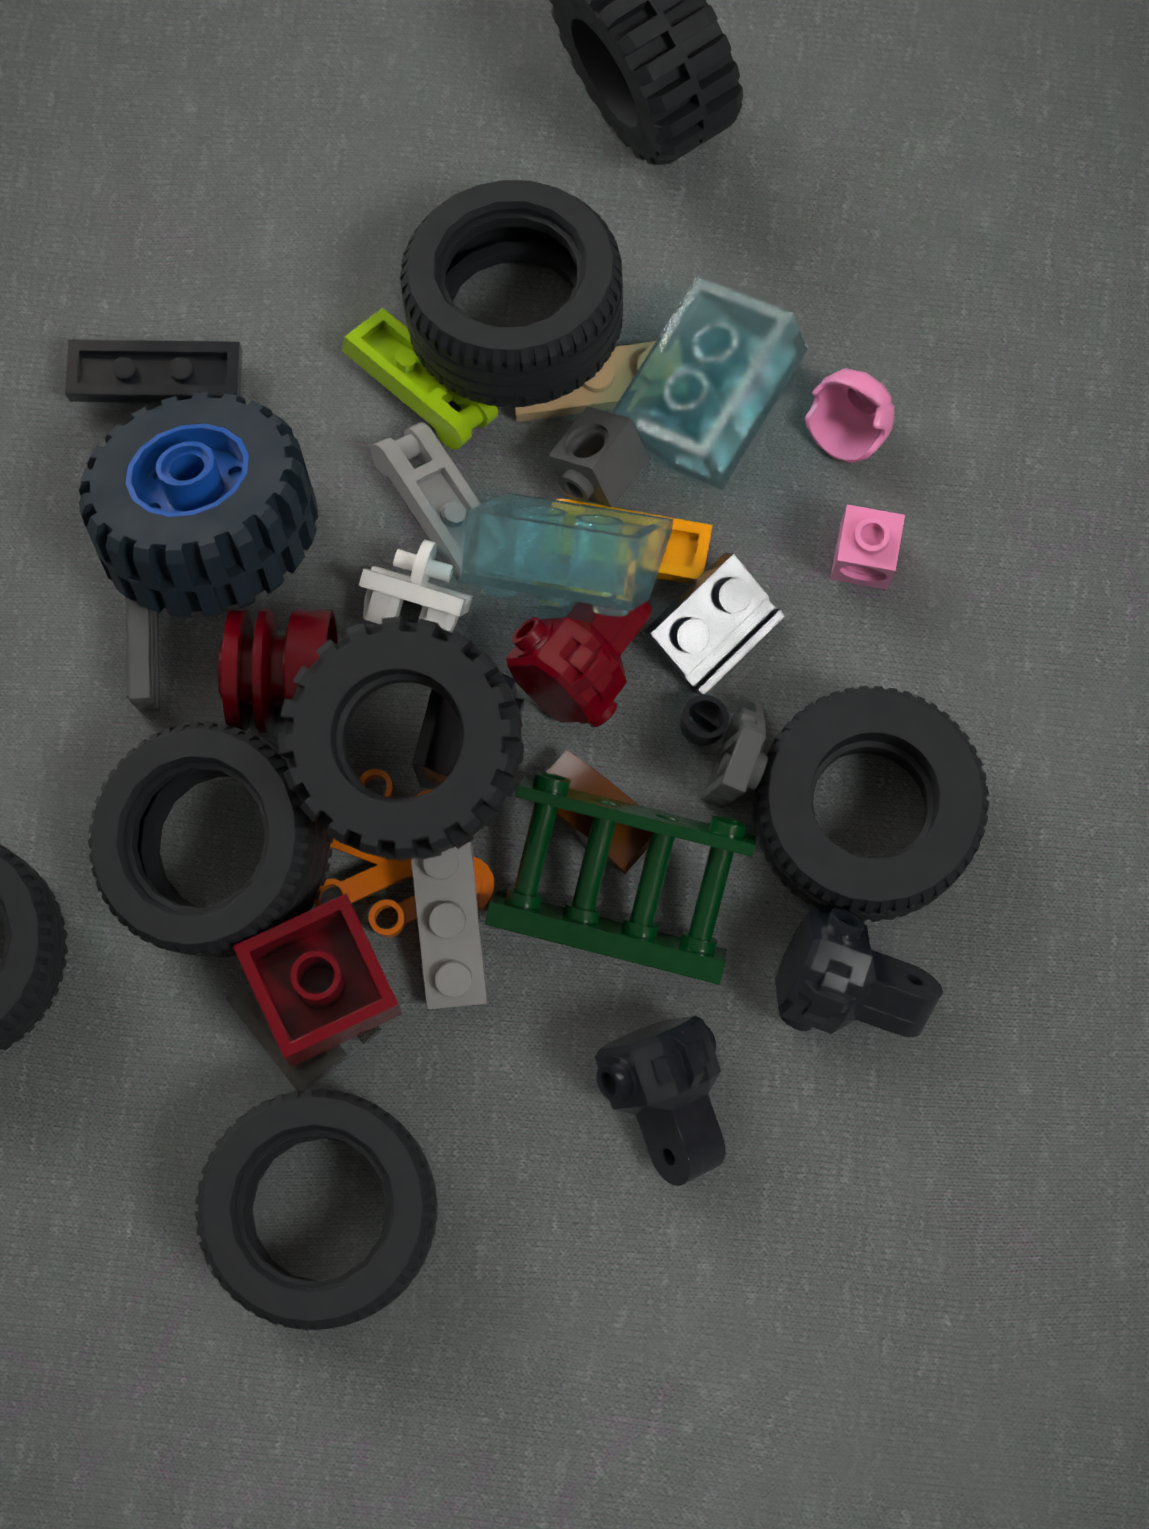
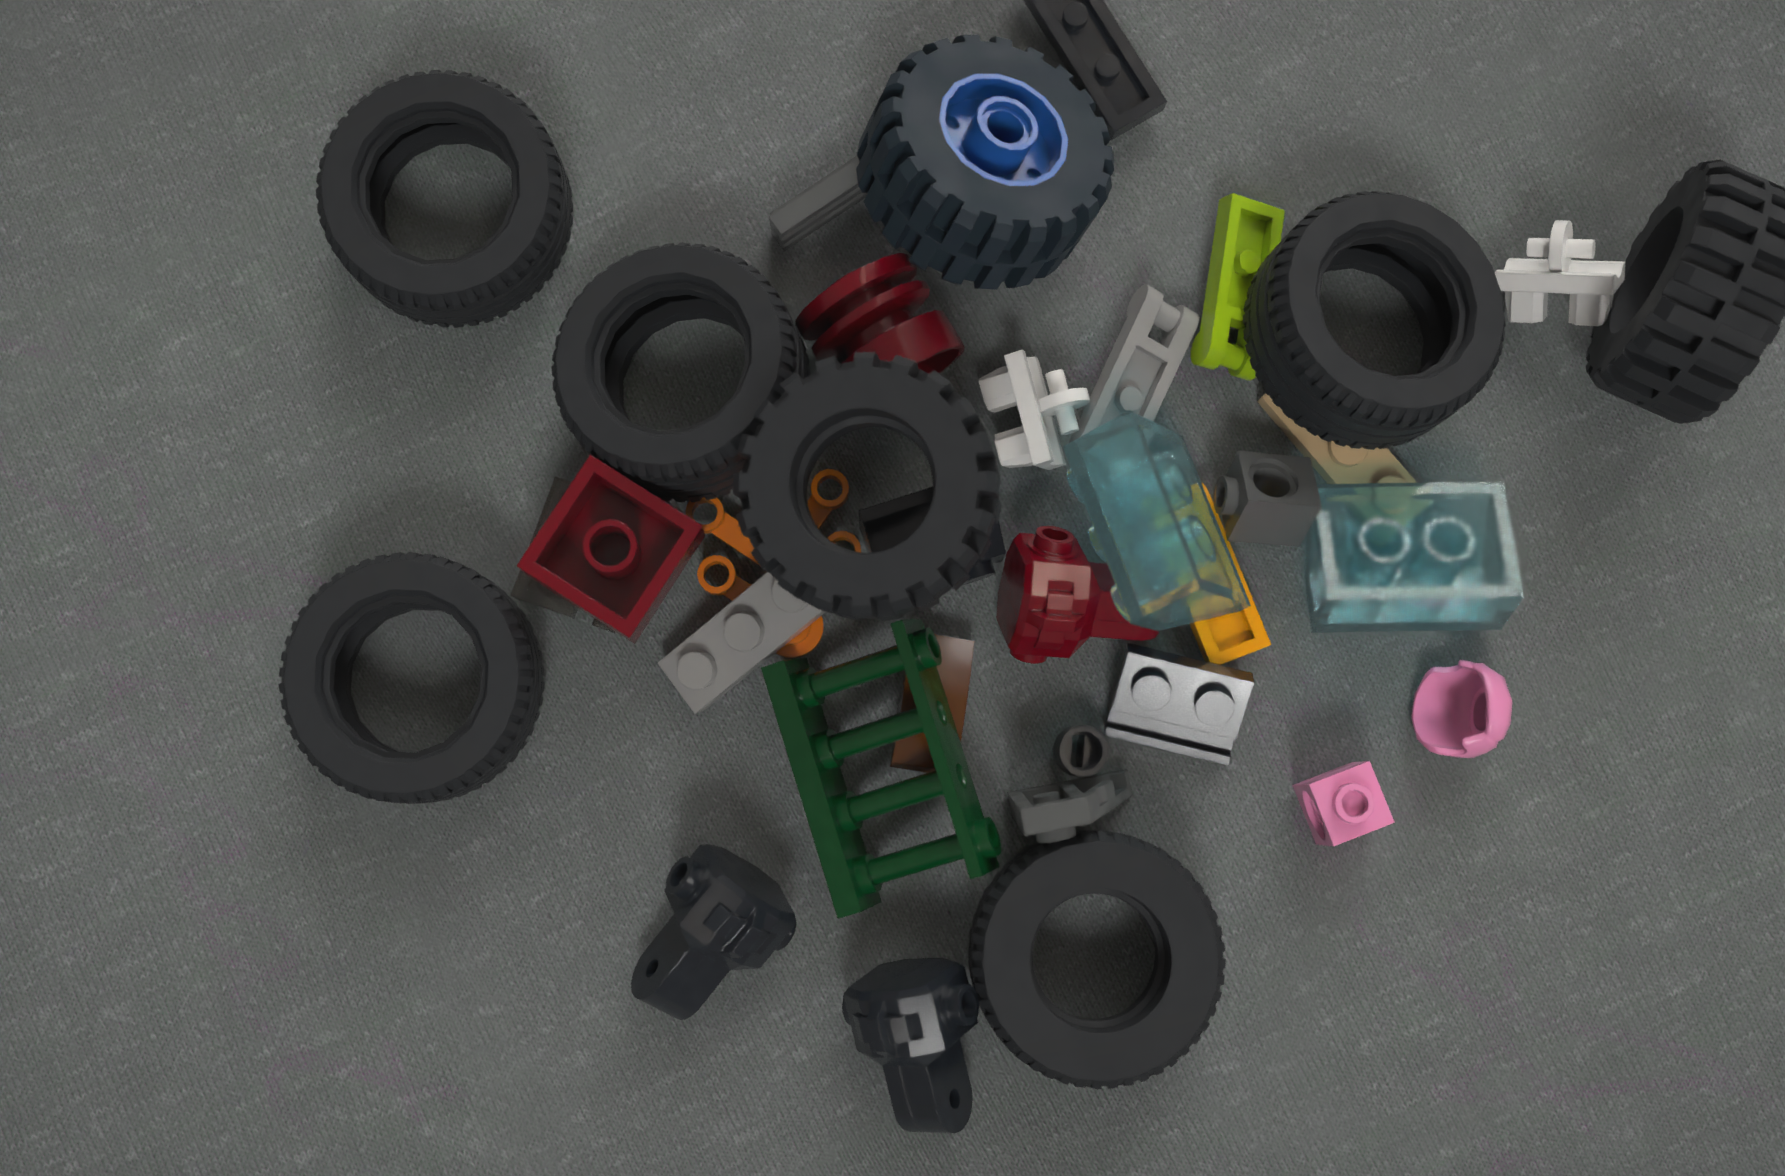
camera: 50 degrees right, 5 degrees up
(584, 121) = (1587, 282): none -> white hips

